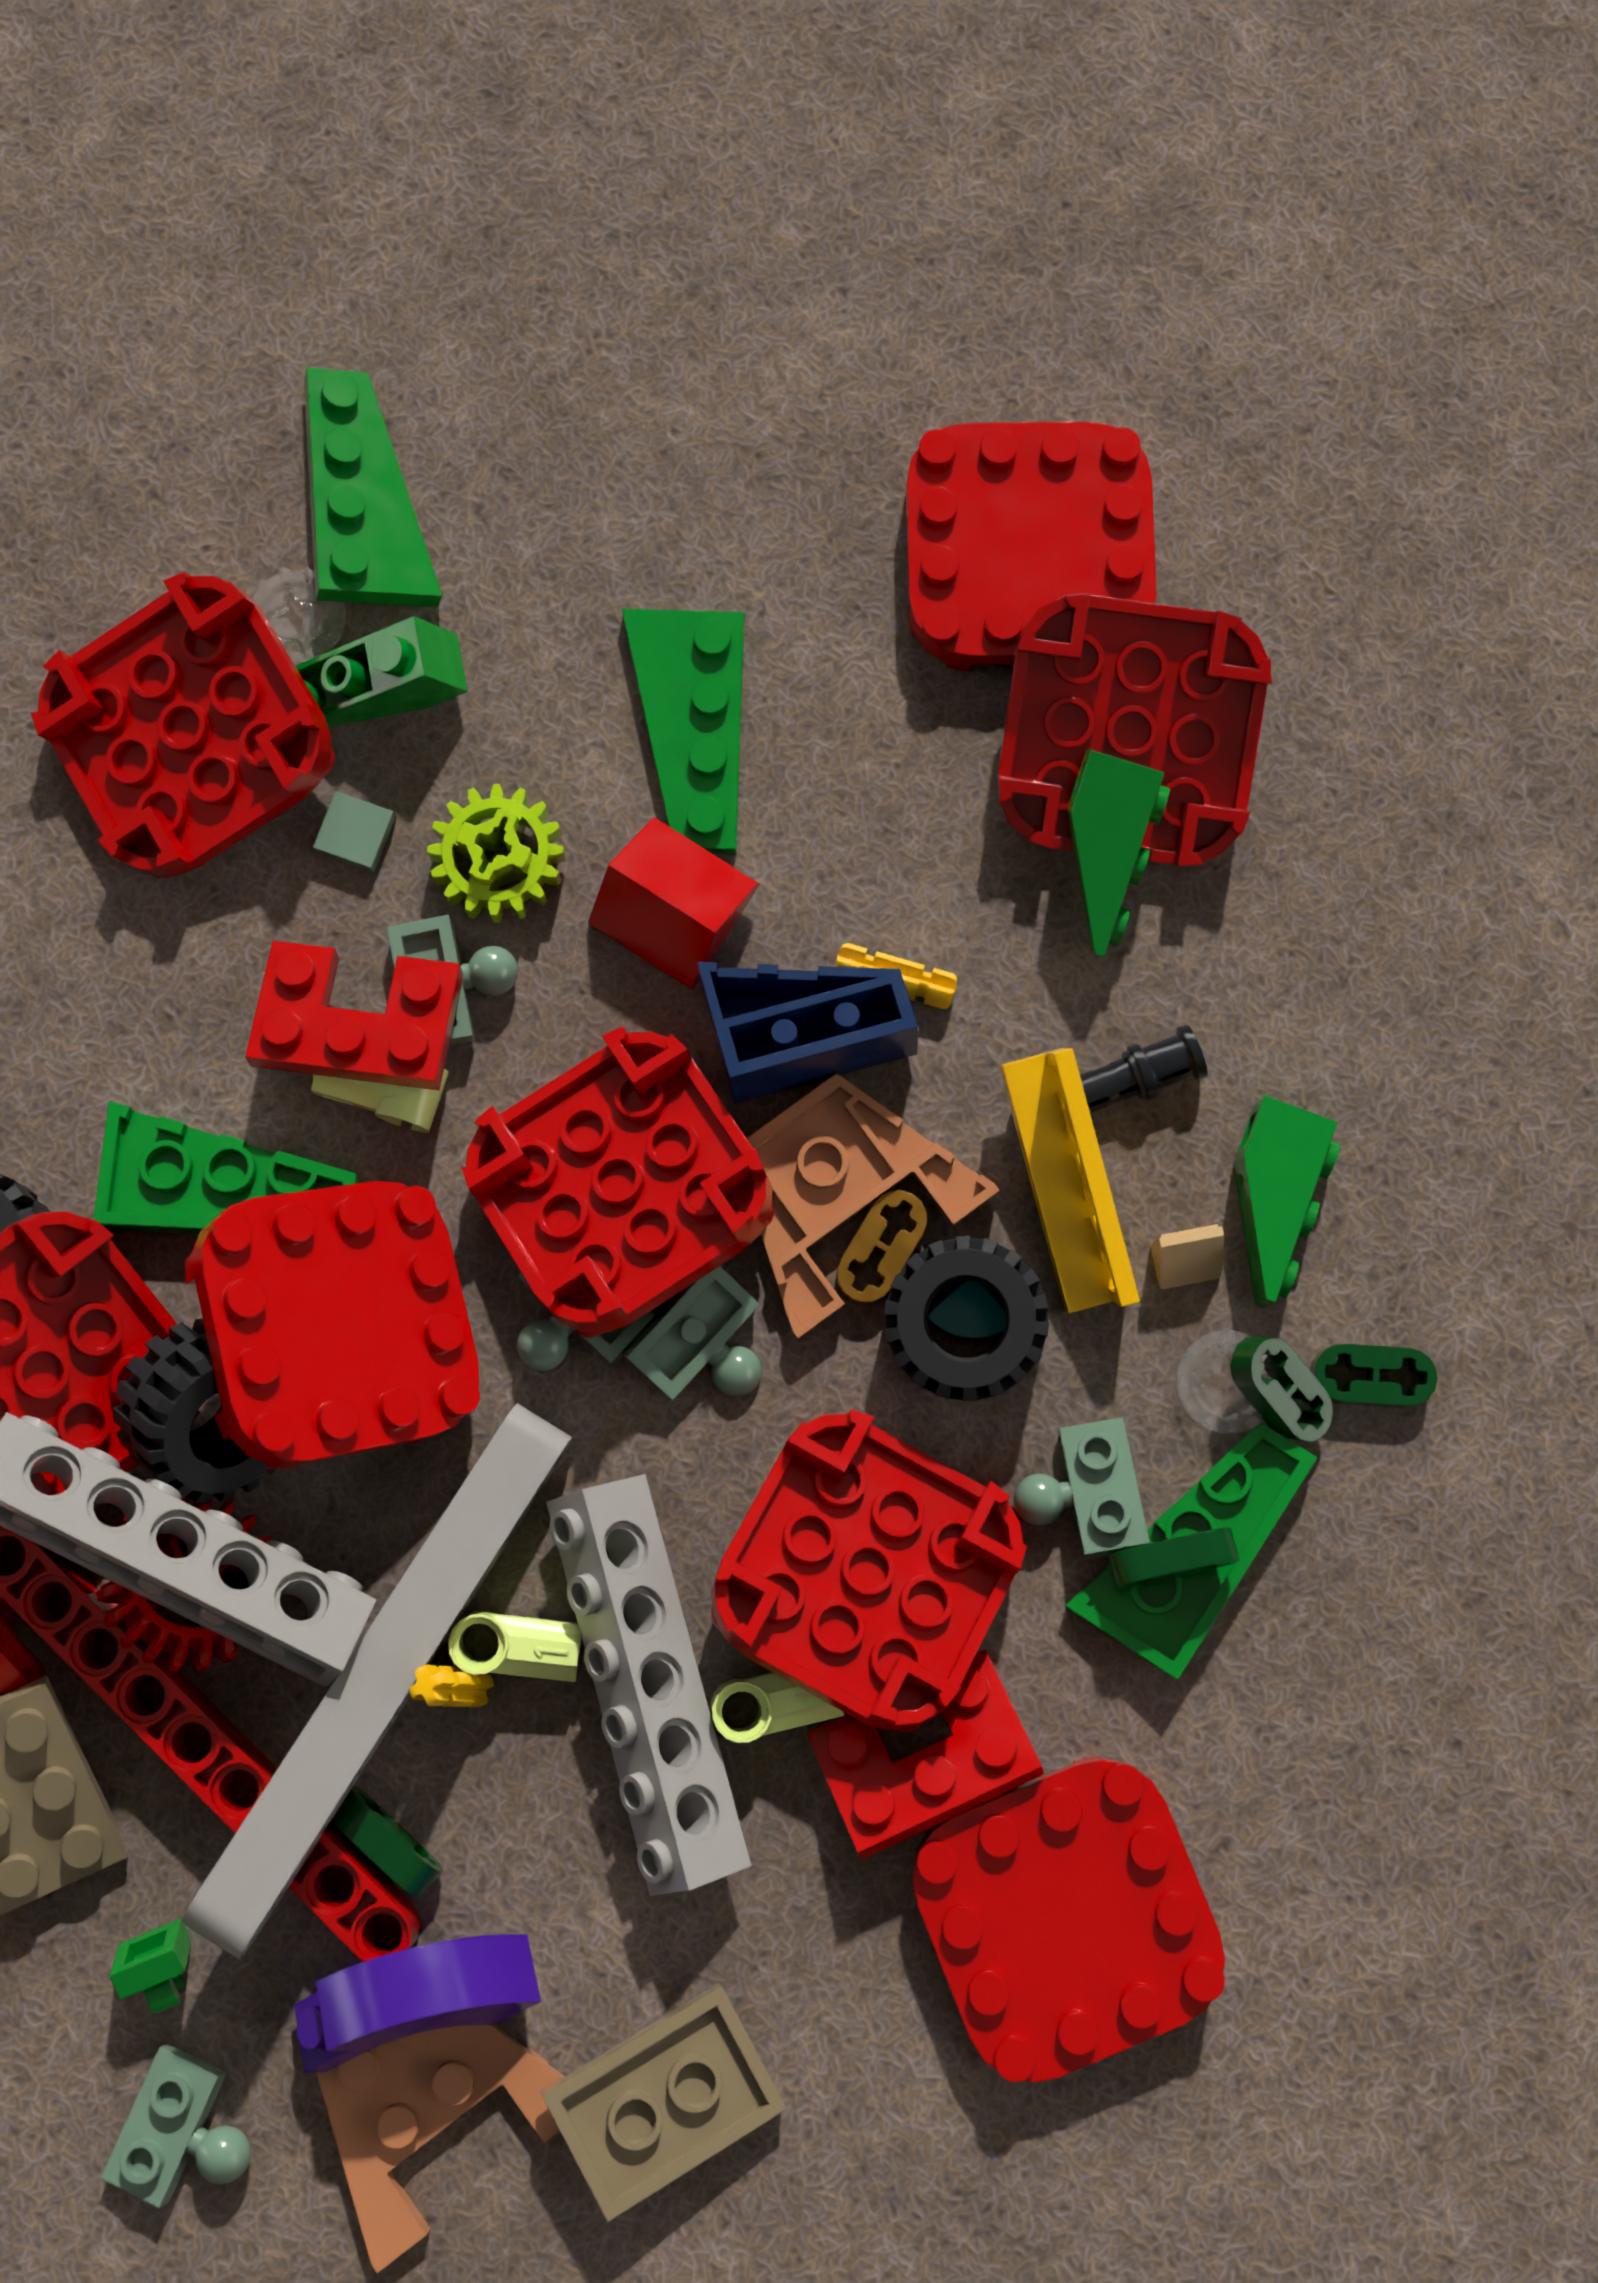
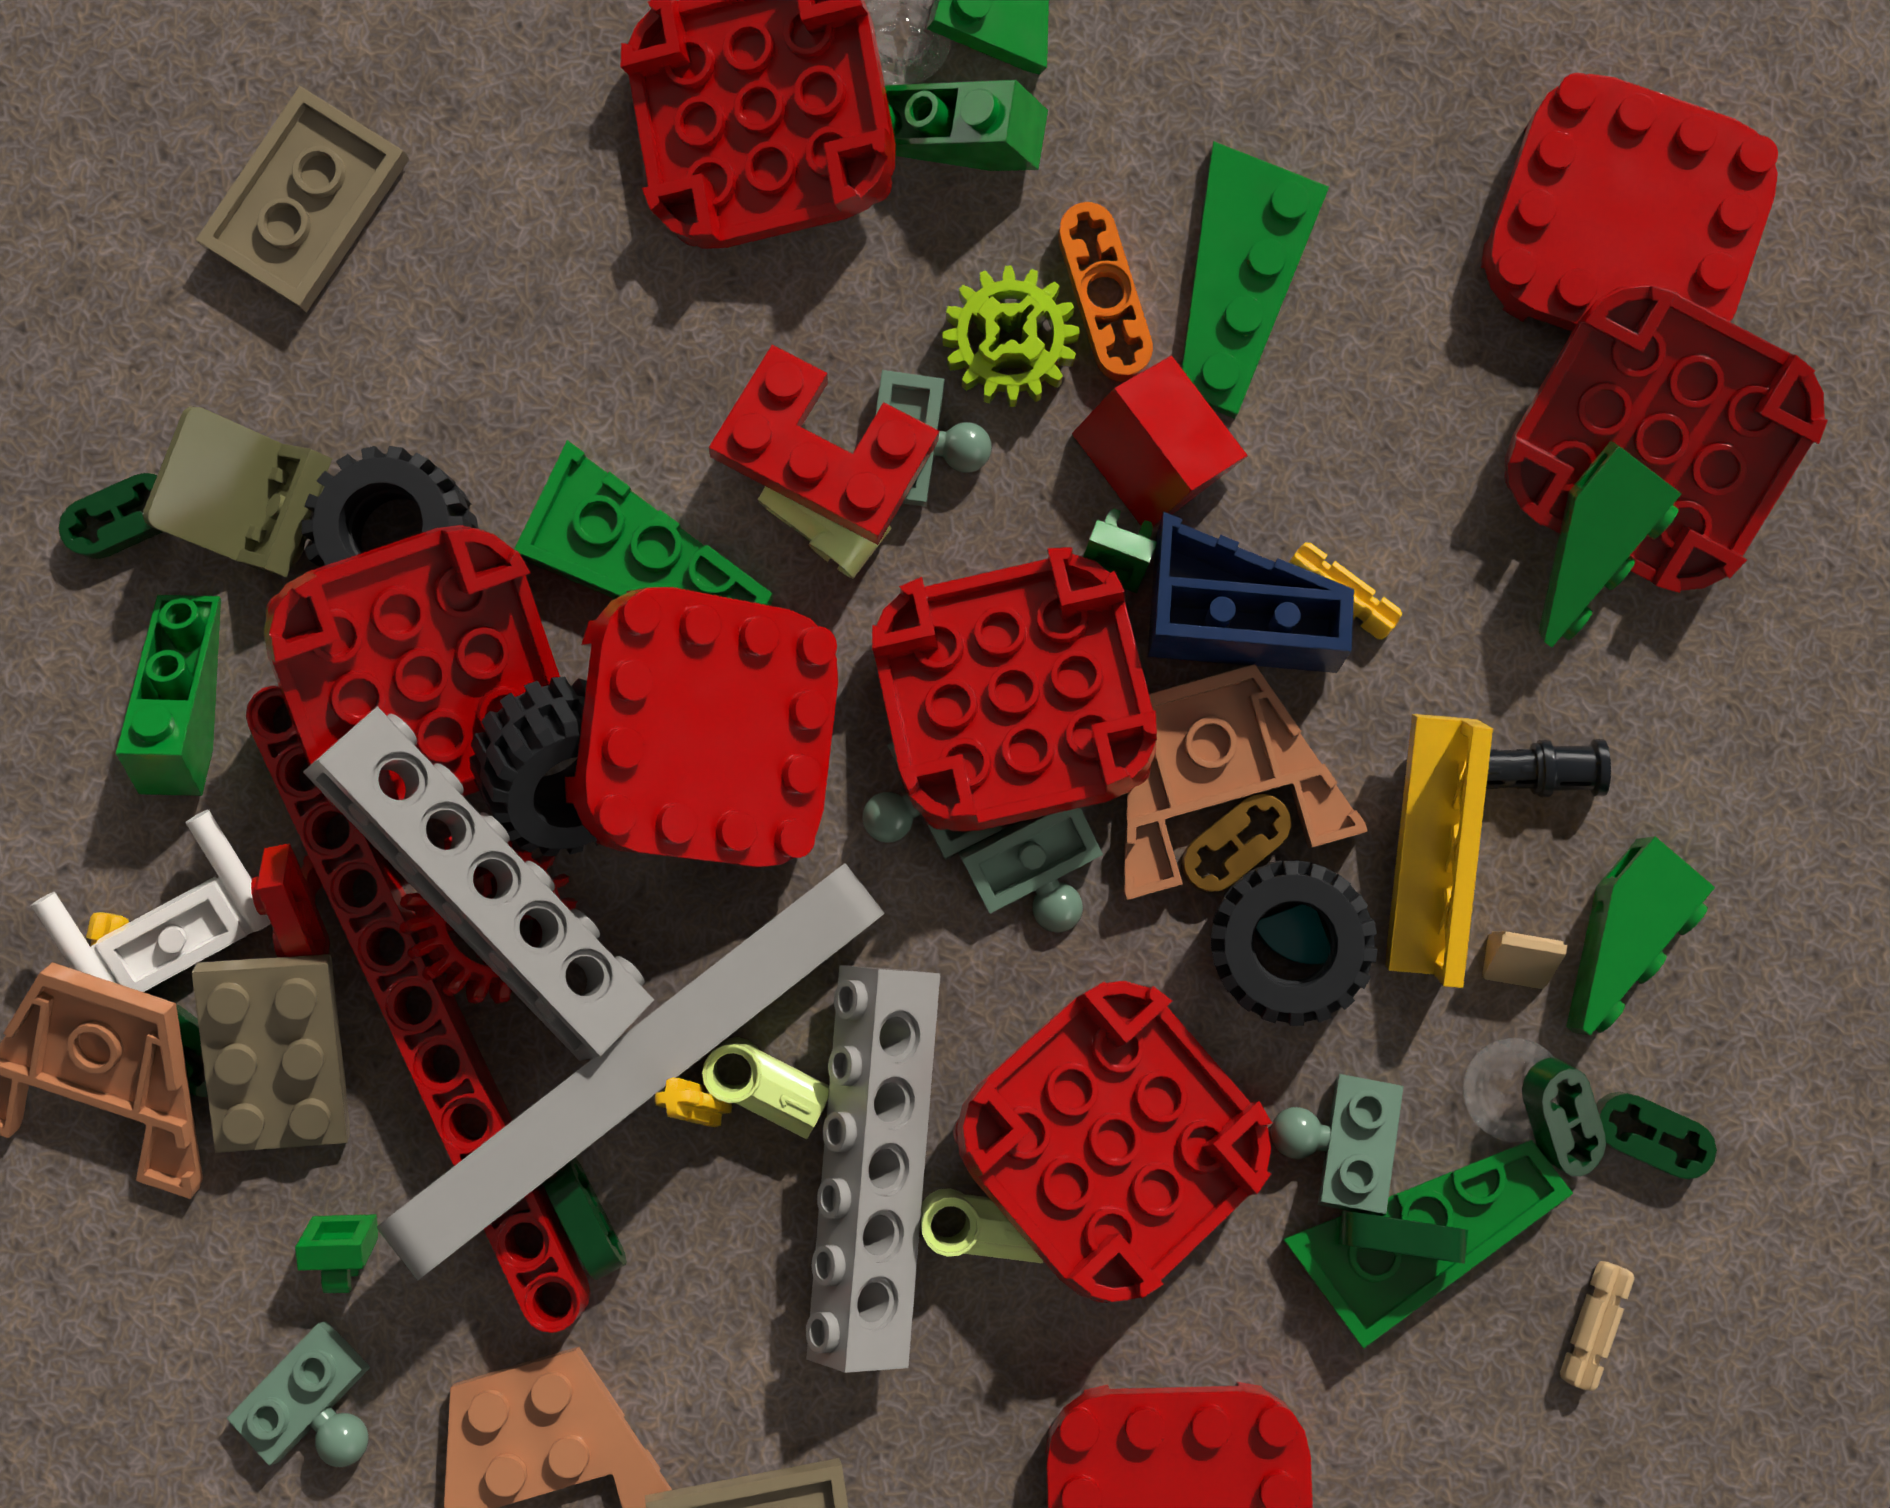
camera: 25 degrees right, 5 degrees up
(354, 832) = (883, 266): sand green tile -> none
(415, 1992) = (563, 1368): dark purple arch -> none
(558, 736) = (1107, 243): none -> orange beam
(672, 1013) = (1121, 550): none -> green tile
(902, 1798) = (1062, 1359): red plate -> none
(1389, 1576) = (1597, 1326): none -> tan axle

